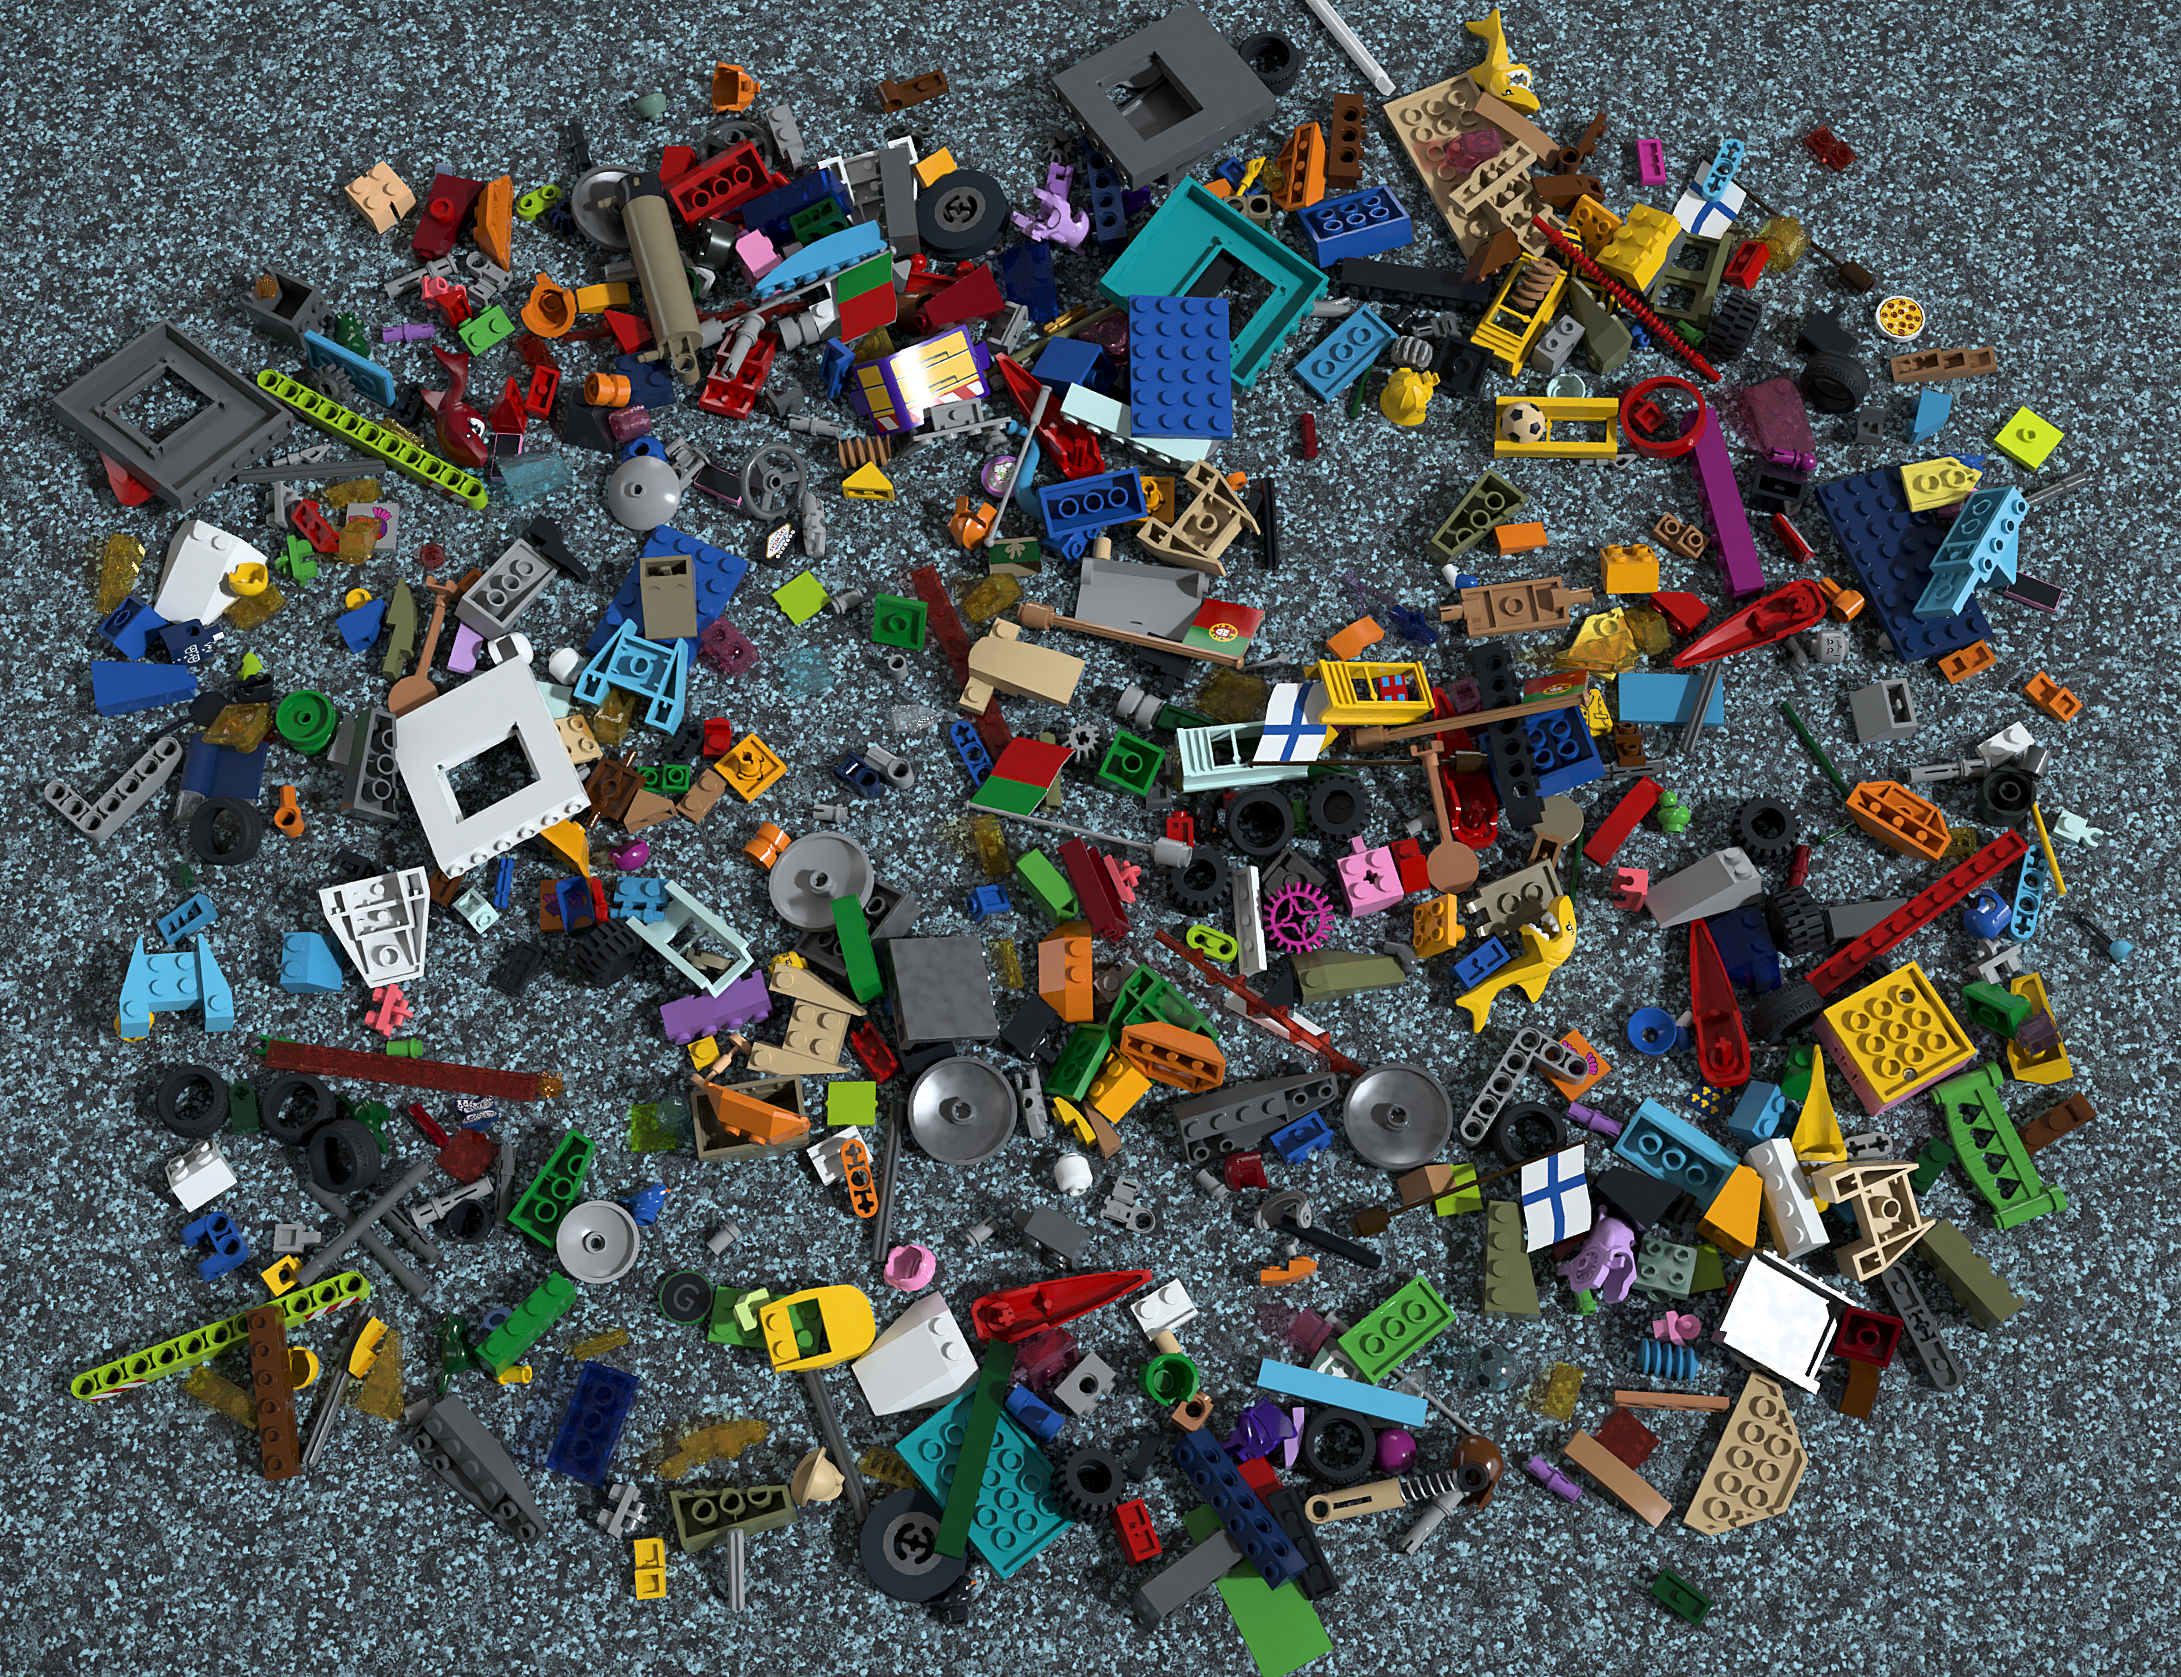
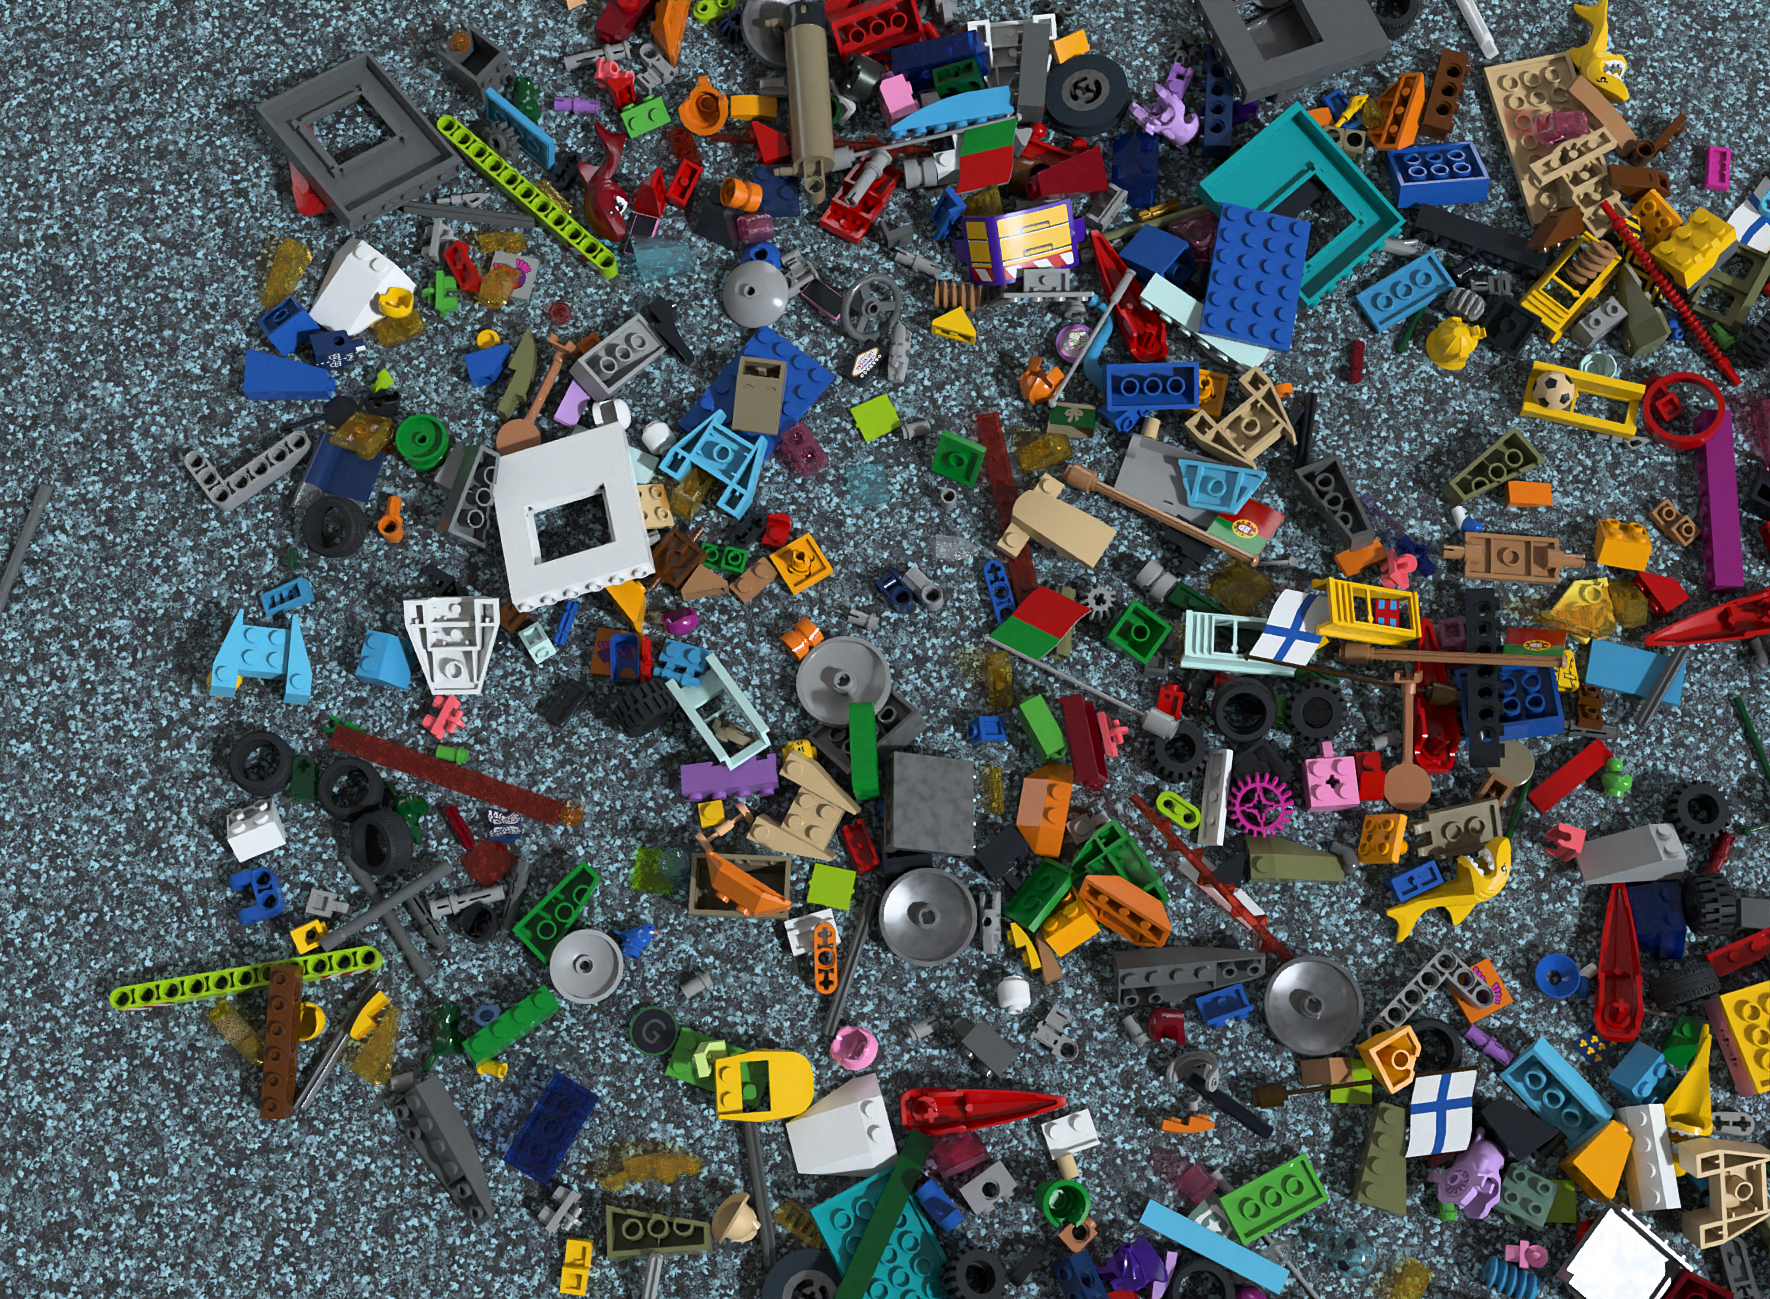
camera: 10 degrees right, 5 degrees up
(601, 1344) = (572, 1056): clear yellow axle -> none
(1186, 593) = (1218, 486): none -> medium azure wing
(1313, 582) = (1335, 499): none -> dark grey wedge
(1394, 642) = (1397, 569): none -> coral hips
(1491, 1150) = (1391, 1057): none -> light orange slope

